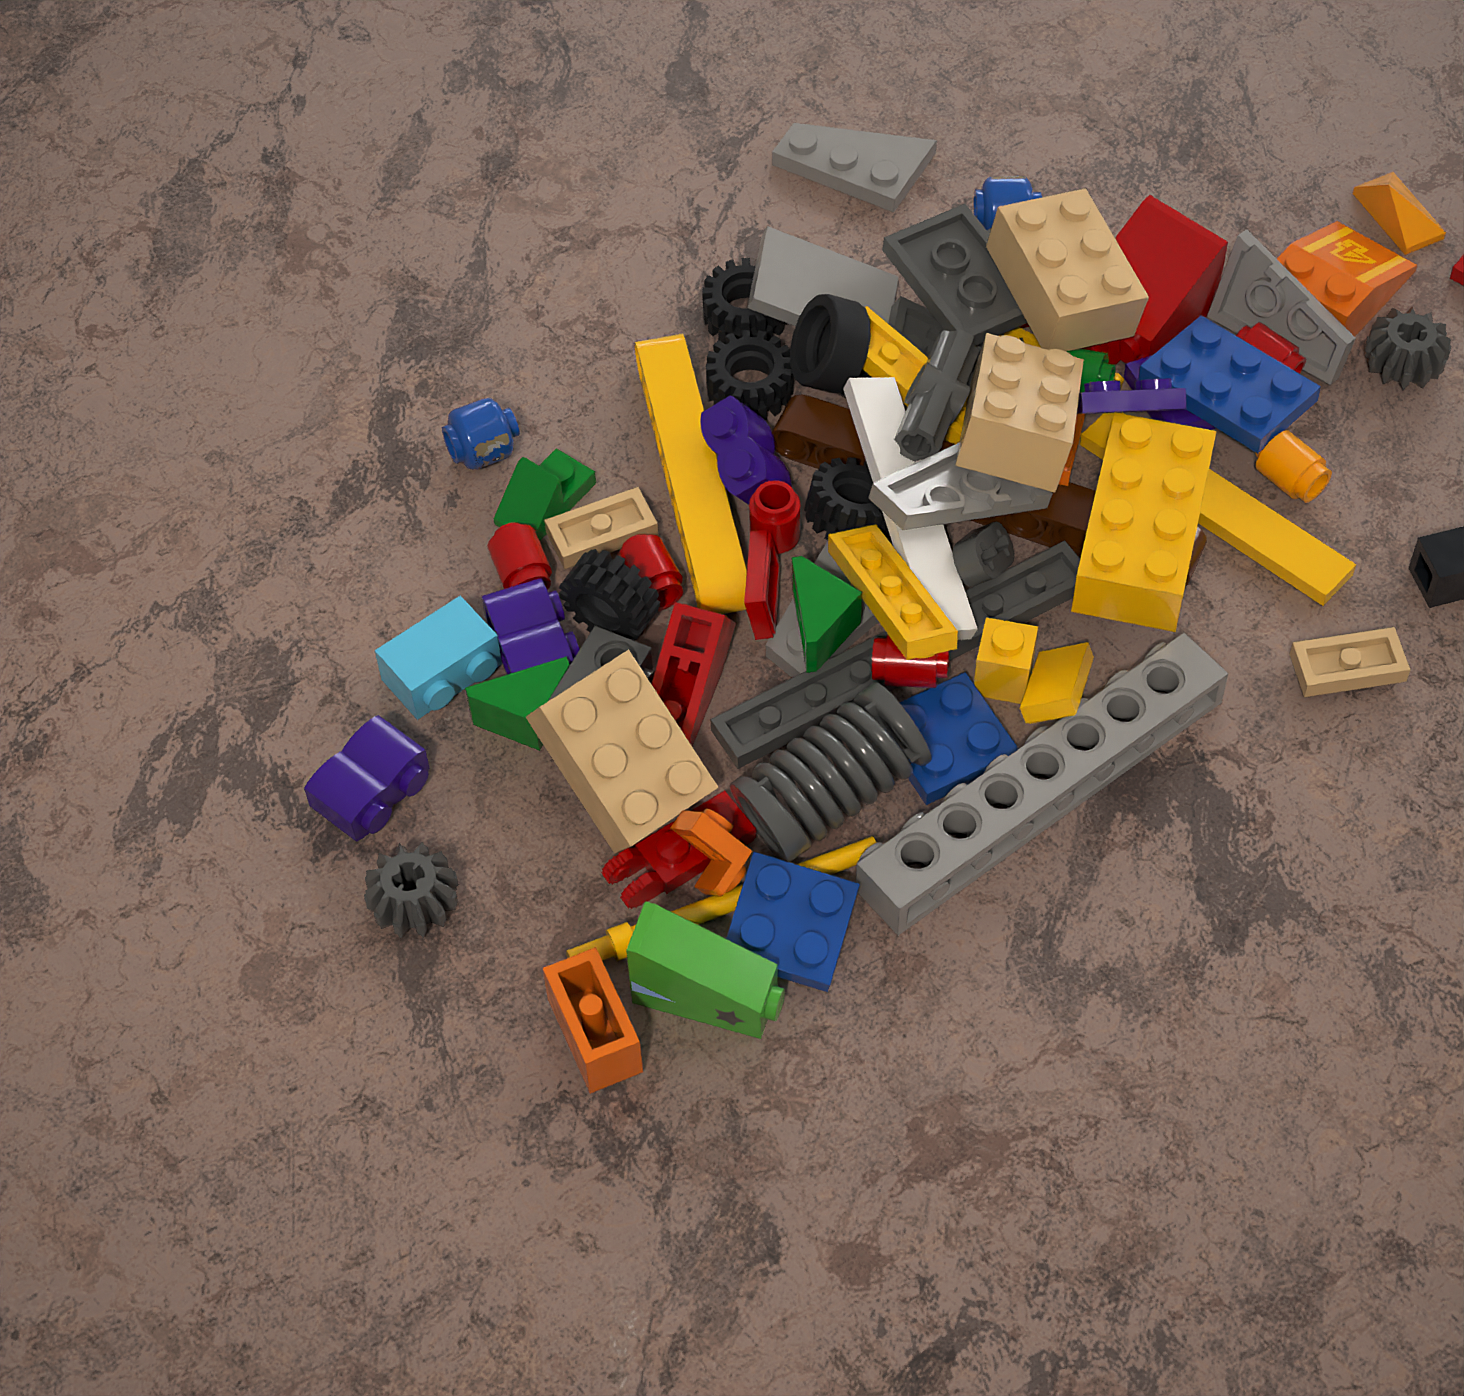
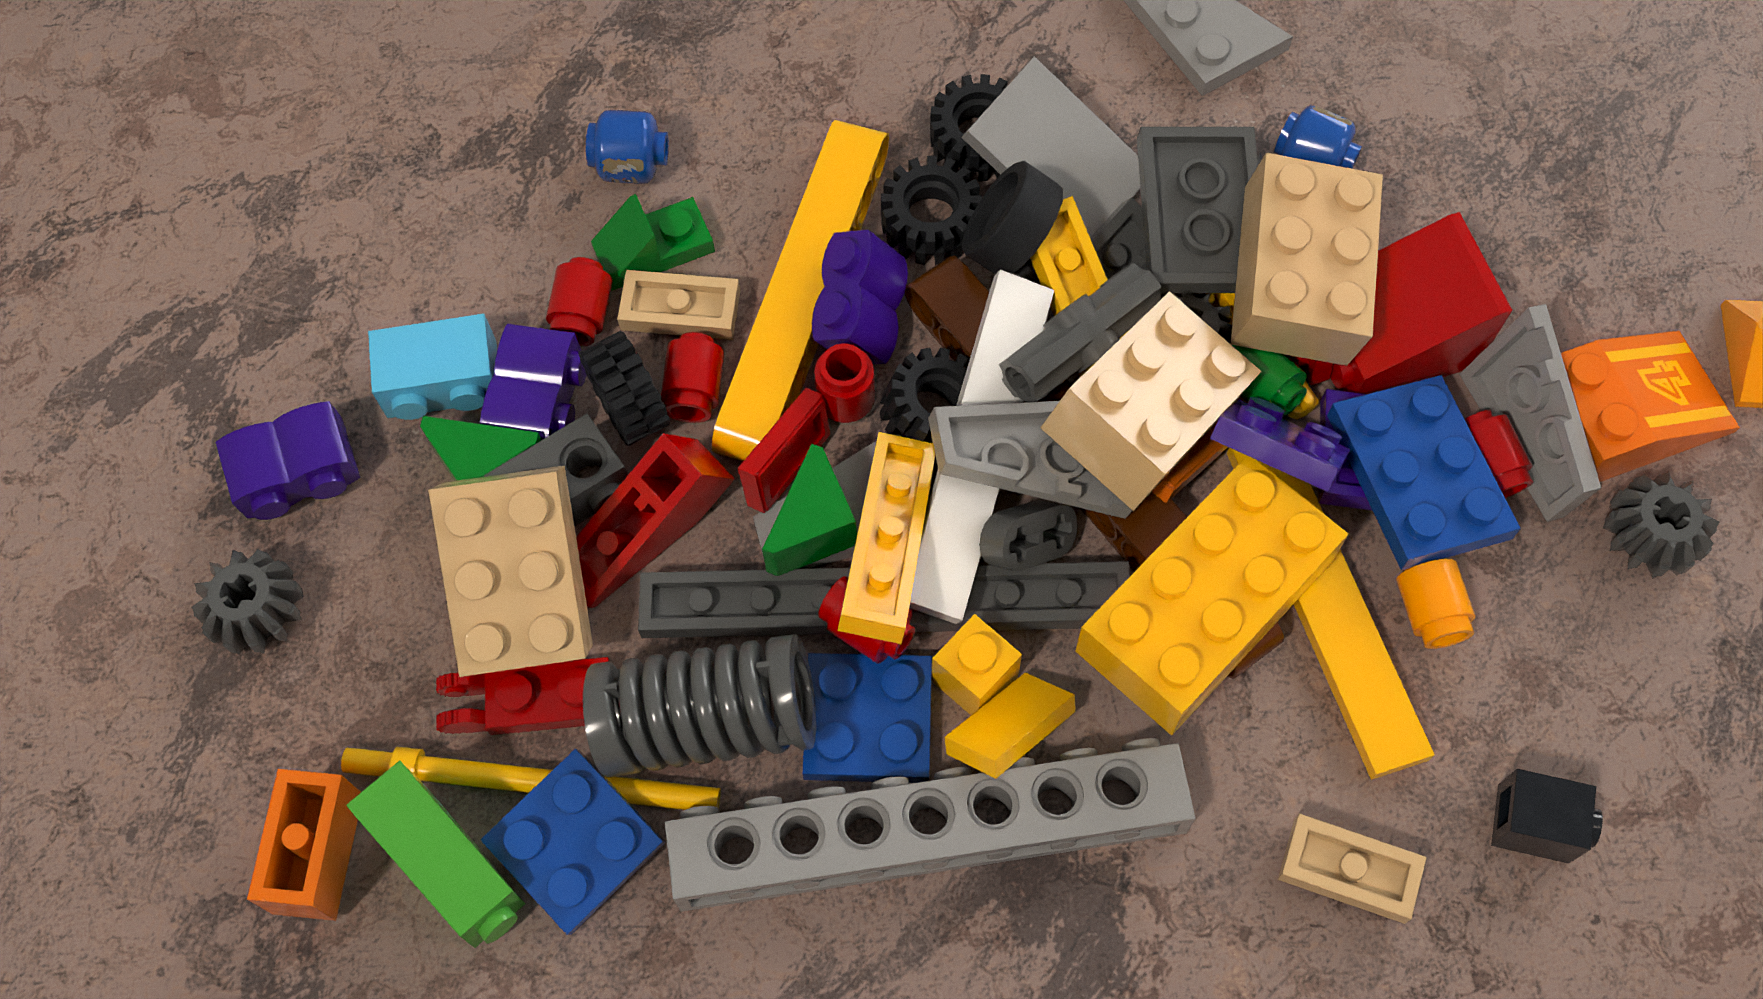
camera: 30 degrees right, 10 degrees up
(712, 837) = (543, 717): orange bracket -> none

